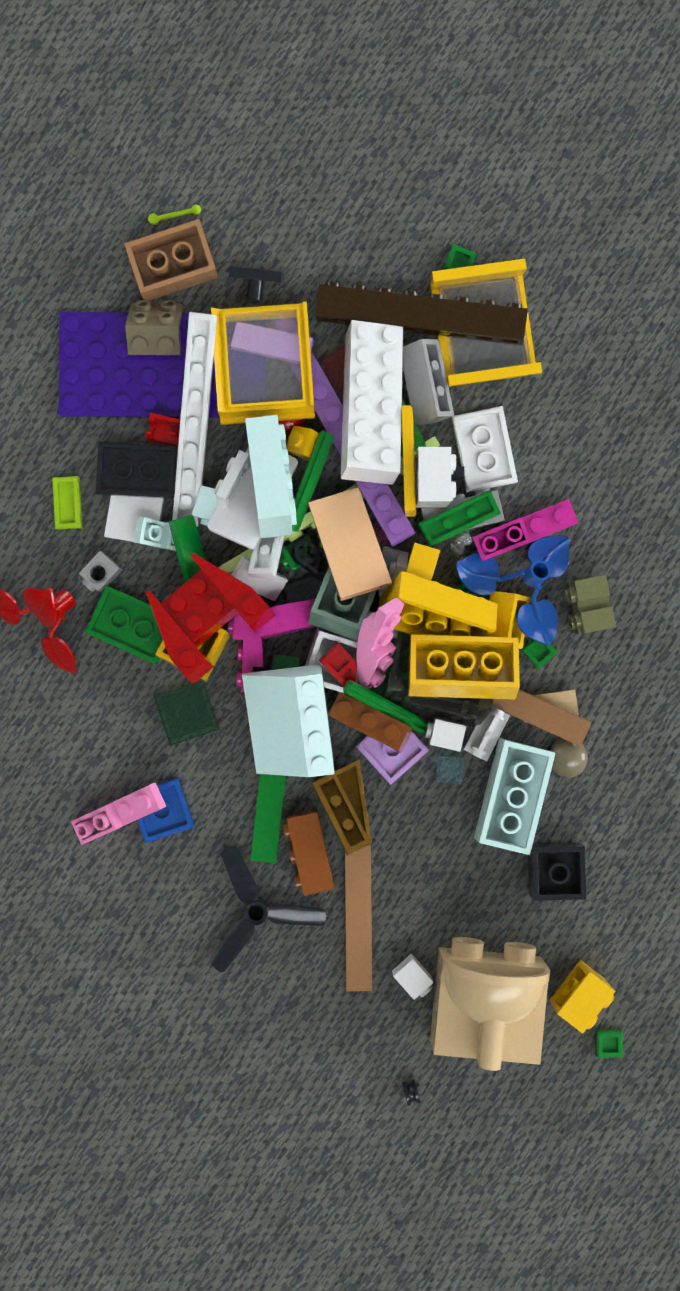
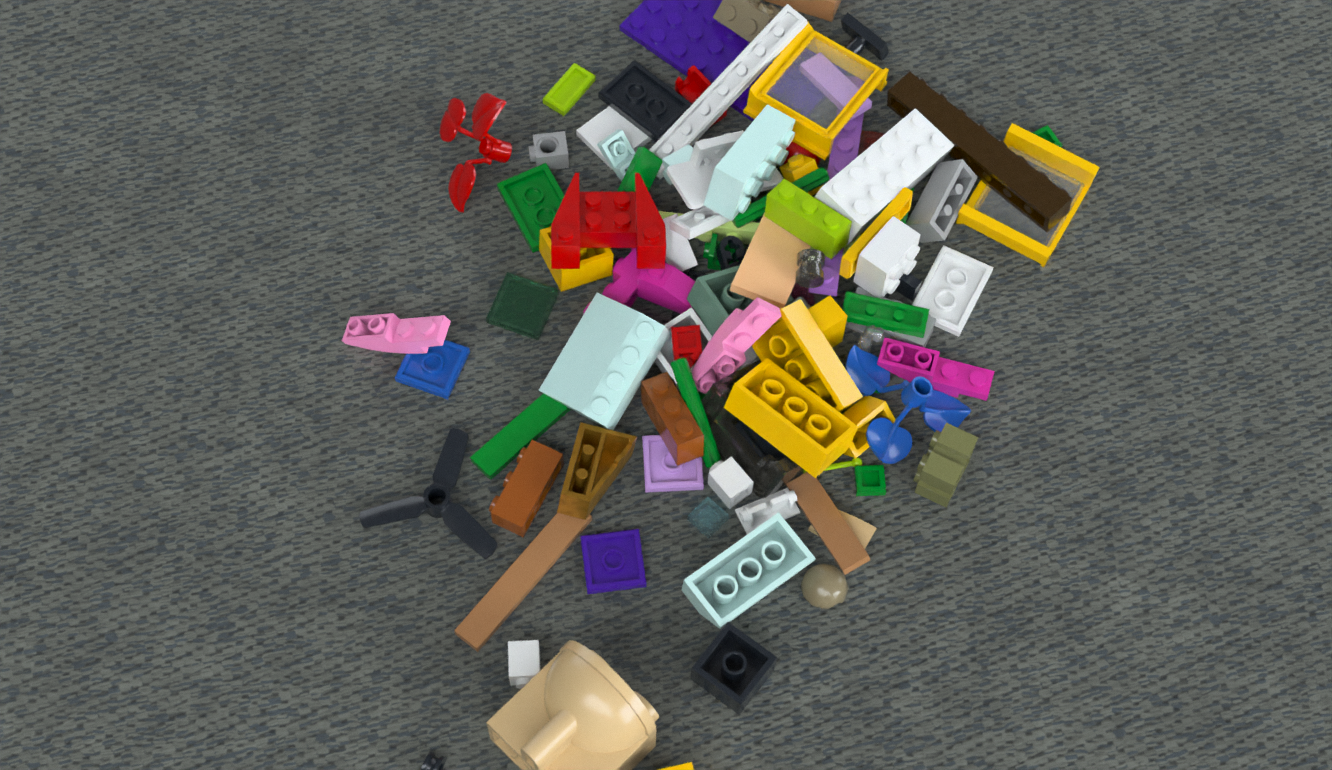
camera: 35 degrees right, 25 degrees down
(350, 492) = (807, 218): none -> lime brick
(386, 535) = (810, 268): none -> clear smoke wheel
(410, 854) = (613, 561): none -> dark purple tile

